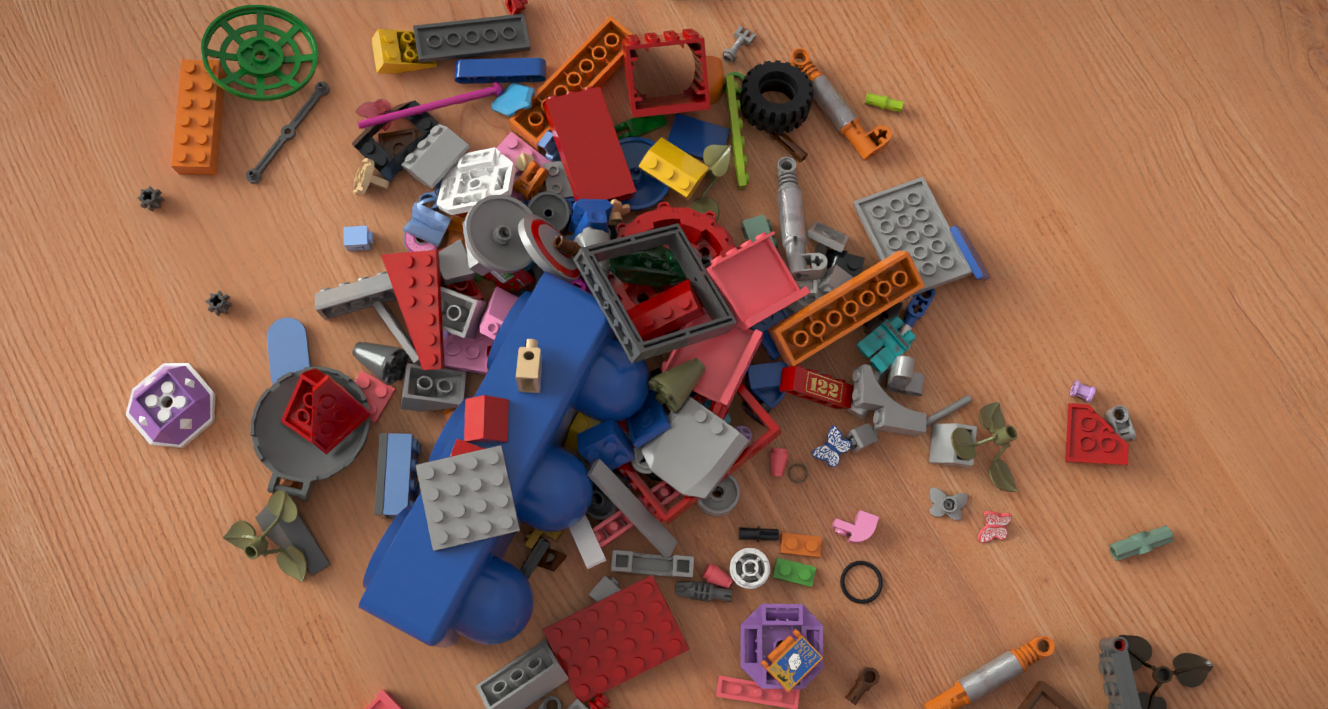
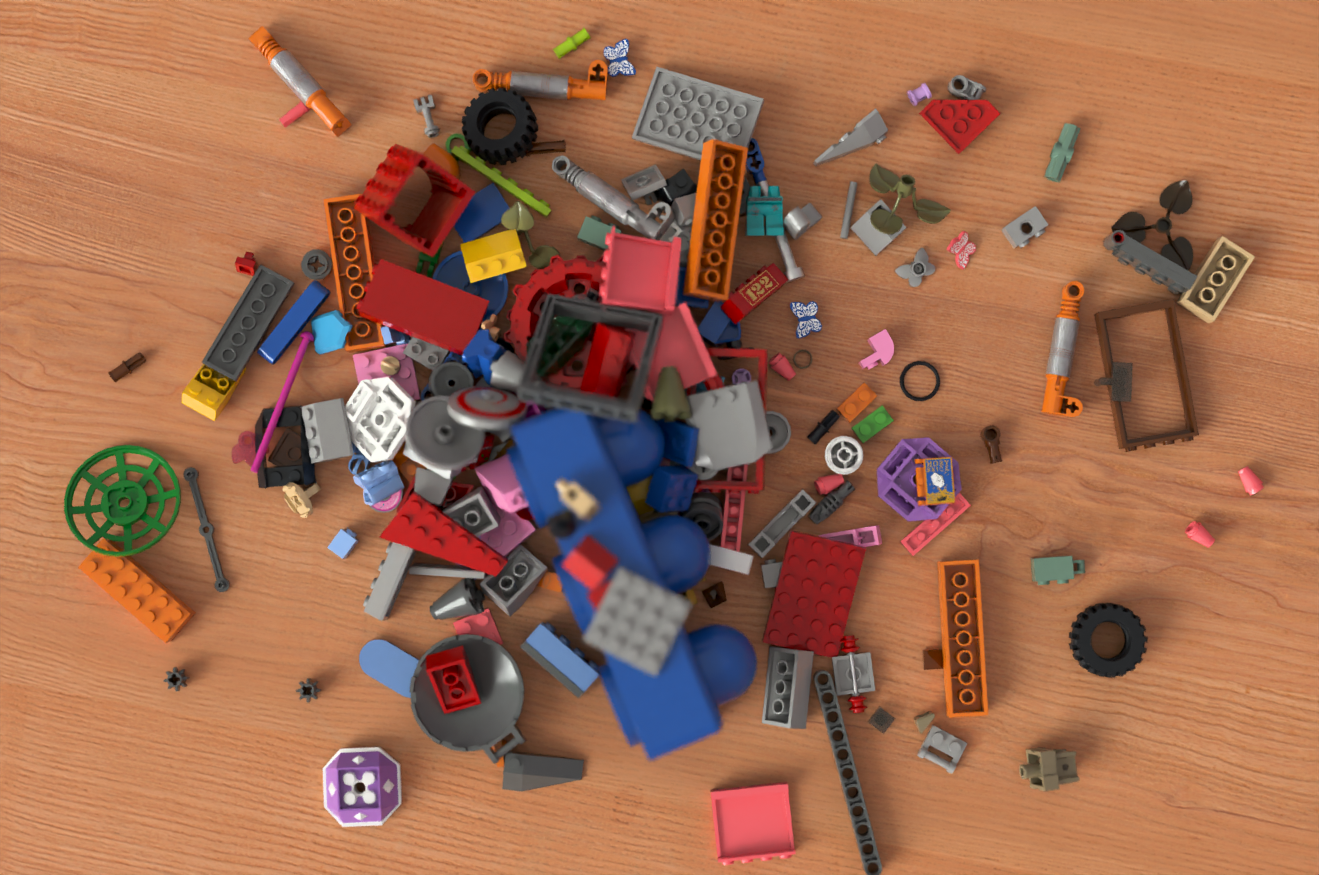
camera: 45 degrees left, 10 degrees up
(243, 536) = (511, 807): olive plant -> none
(334, 414) = (478, 669): red plate -> none
(498, 371) = (562, 525): none -> black piece
(529, 181) = (408, 380): orange piece -> none
(535, 557) = (704, 605): black axle -> none
(559, 46) = (311, 257): none -> dark grey gear
(569, 247) = (501, 392): reddish brown axle -> none
(632, 508) = (732, 505): light grey tile -> none
(696, 640) = (862, 536): none -> bright pink slope
(862, 437) = (817, 289): light grey slope -> none
(888, 414) = (816, 255): light grey arch -> none
(903, 143) = (618, 59): none -> animal
(969, 253) = (747, 86): blue tile -> none
(1014, 374) = (865, 134): none -> light grey wedge
(1068, 563) = (1033, 219): none -> light grey brick

